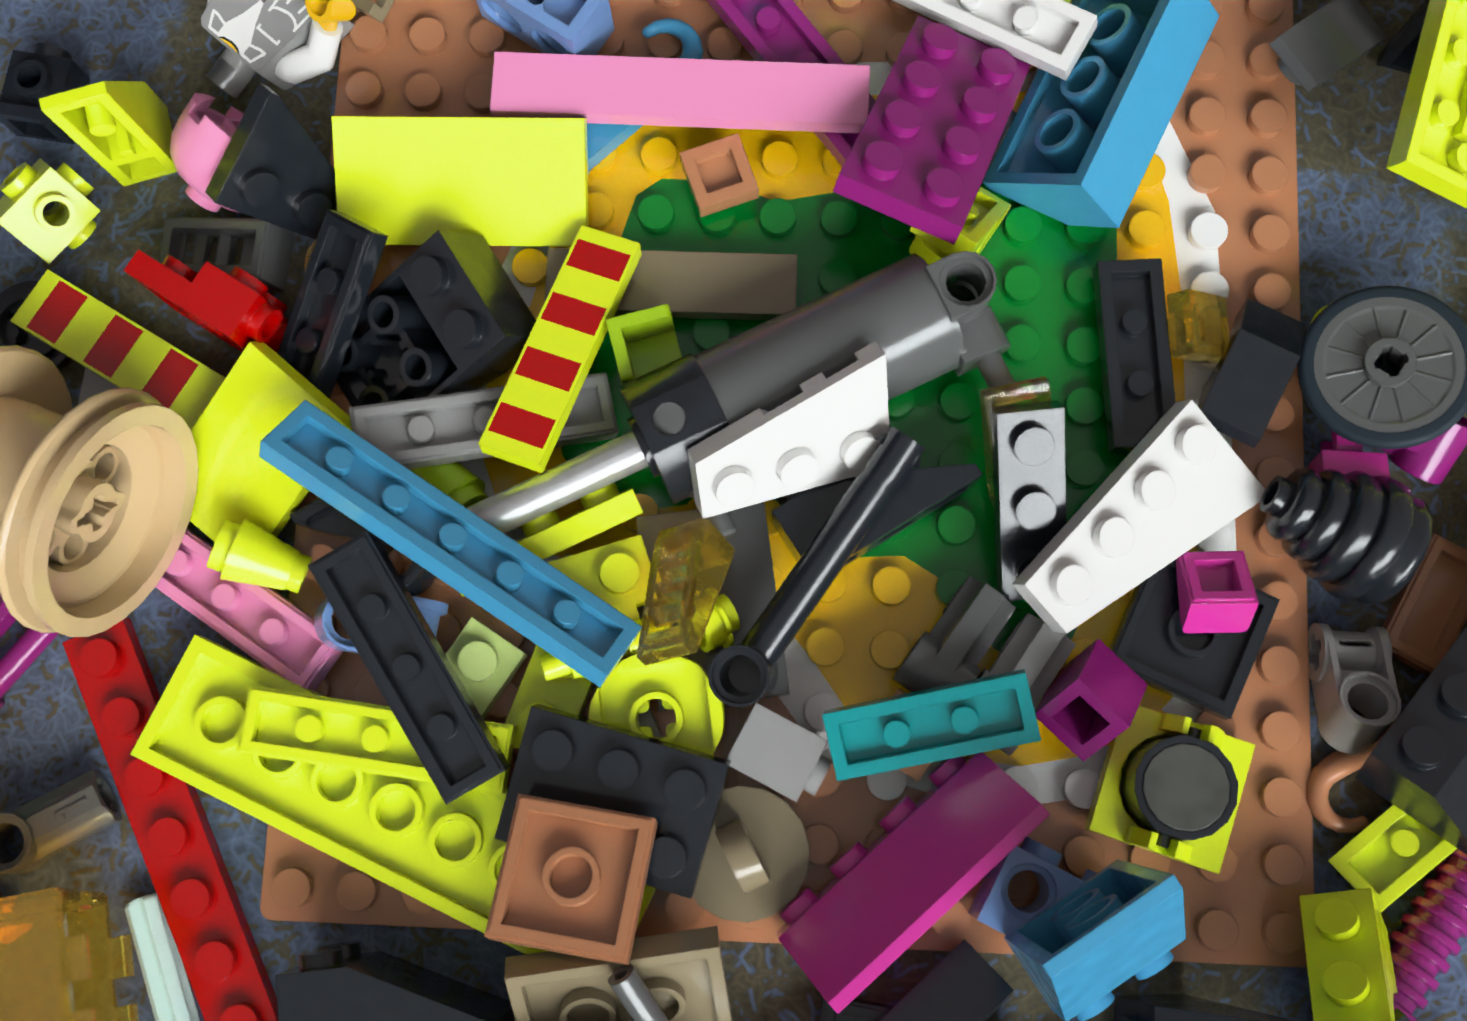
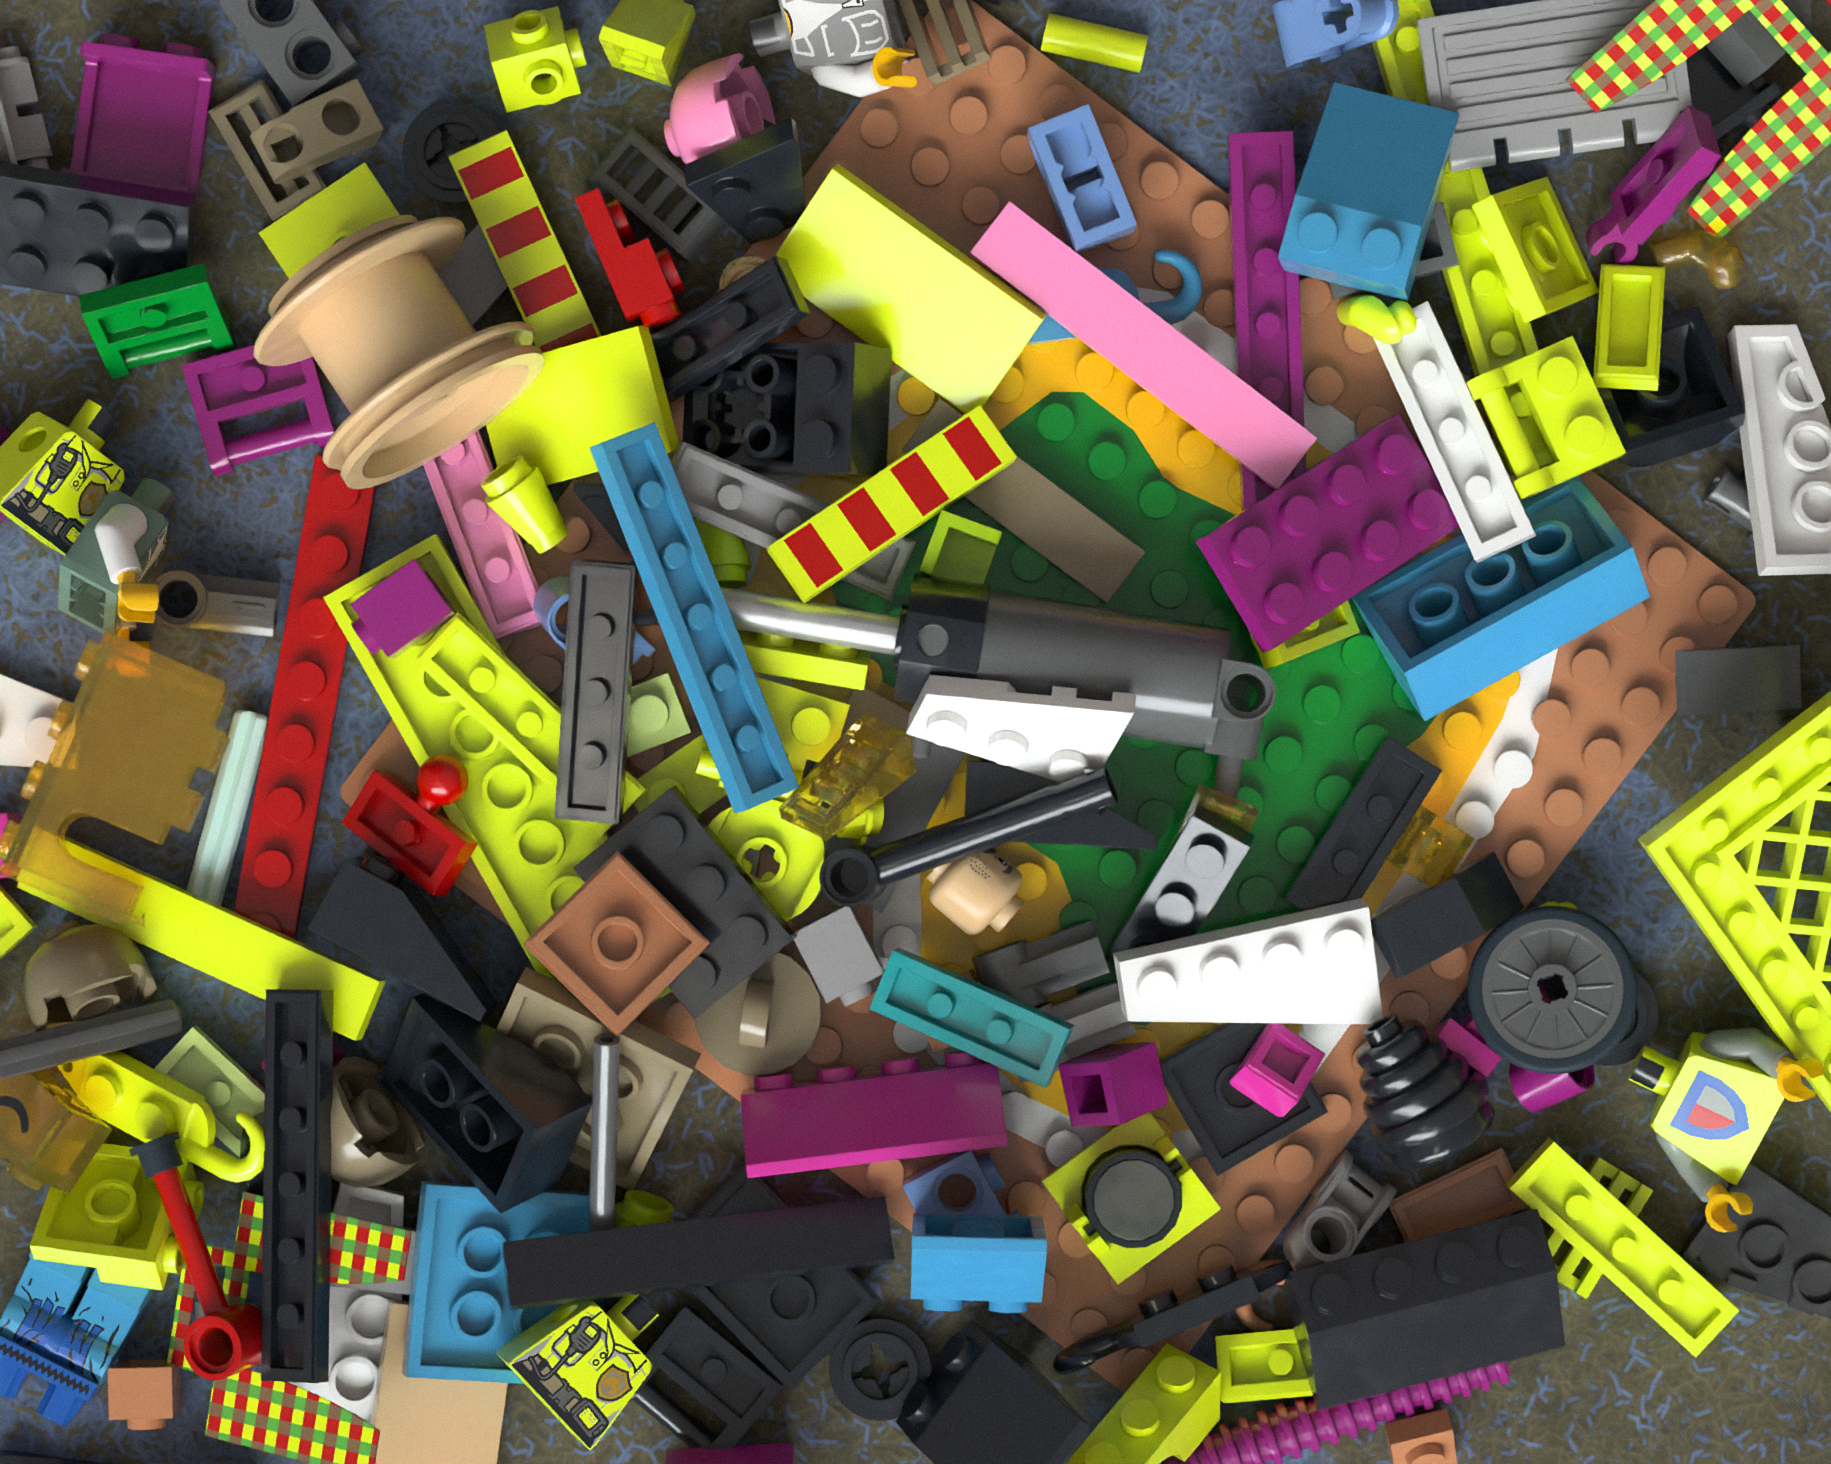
camera: 25 degrees right, 10 degrees up
(195, 717) = (401, 610): none -> magenta brick
(329, 903) = (410, 828): none -> red plate
(719, 175) = (1128, 435): nougat plate -> none
(856, 616) = (977, 891): none -> tan head
(1287, 867) = (1168, 1315): none -> black plate

